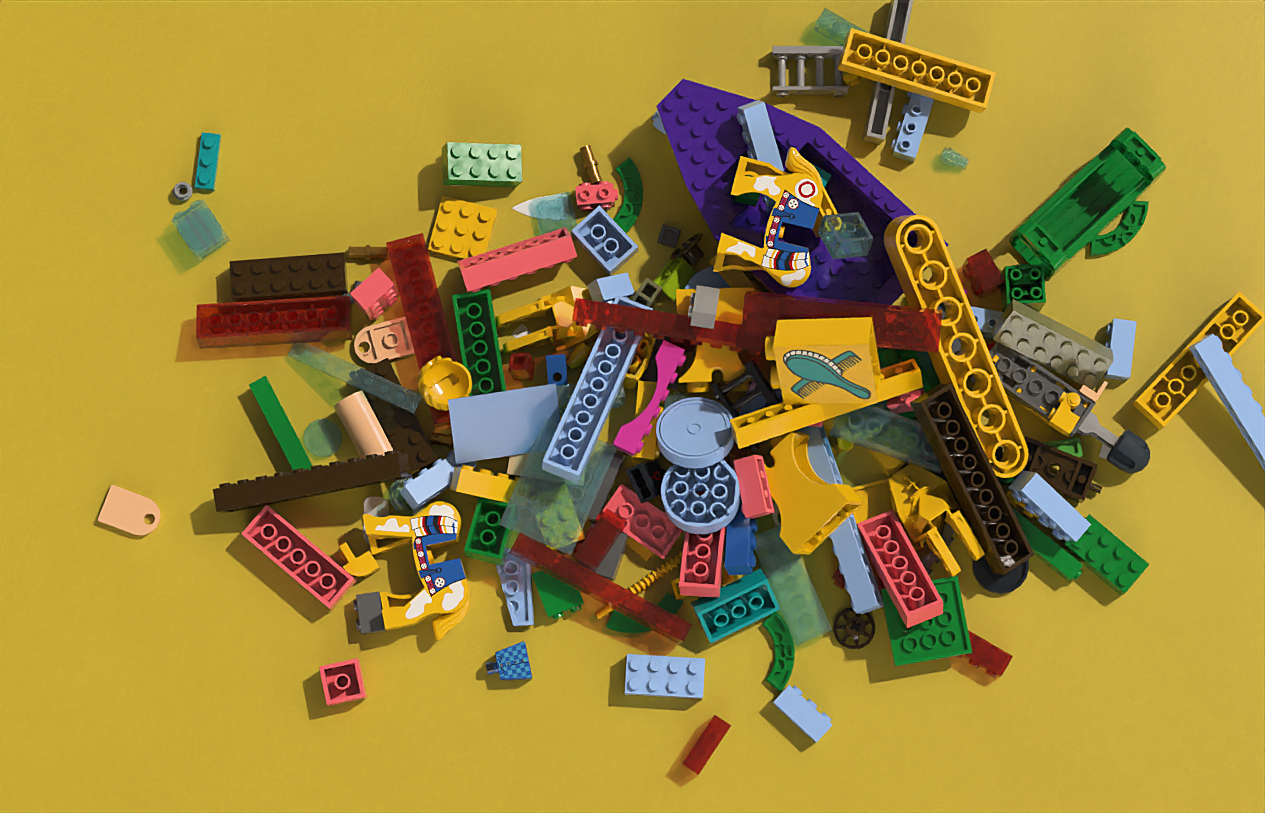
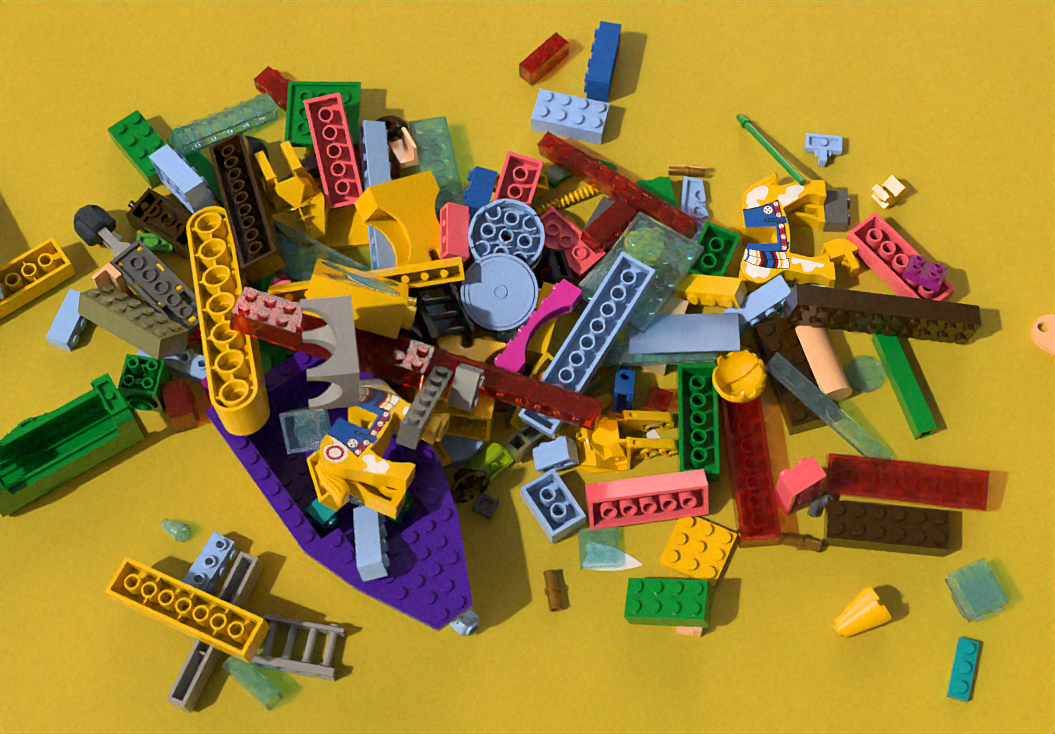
camera: 170 degrees left, 15 degrees down
(178, 187) = (996, 637): light grey plate -> none
(273, 537) = (924, 272): none -> magenta plate
(303, 190) = (861, 614): none -> yellow cone
(316, 644) = (889, 192): none -> brick
(343, 682) = (867, 156): coral brick -> none
(386, 340) = (790, 448): light nougat tile -> none
(391, 691) = (823, 146): none -> light blue hinge
(476, 704) = (746, 124): none -> green bar
(511, 663) = (708, 149): torso -> none
(531, 635) = (687, 170): none -> pearl gold pin
(592, 196) = (553, 556): coral brick -> none
(632, 195) = (515, 550): green tile -> none
(640, 747) = (602, 61): none -> blue brick
(736, 265) = (421, 409): none -> dark grey arch
(736, 607) = (490, 153): teal brick -> none
(784, 651) = (457, 123): green tile -> none
(803, 713) = (452, 70): light blue brick -> none
(830, 294) = (340, 340): none -> light grey piece
(832, 599) = (404, 150): none -> light nougat panel
(1027, 593) = (223, 124): none -> clear light blue brick
(1062, 417) = (144, 251): yellow brick -> none

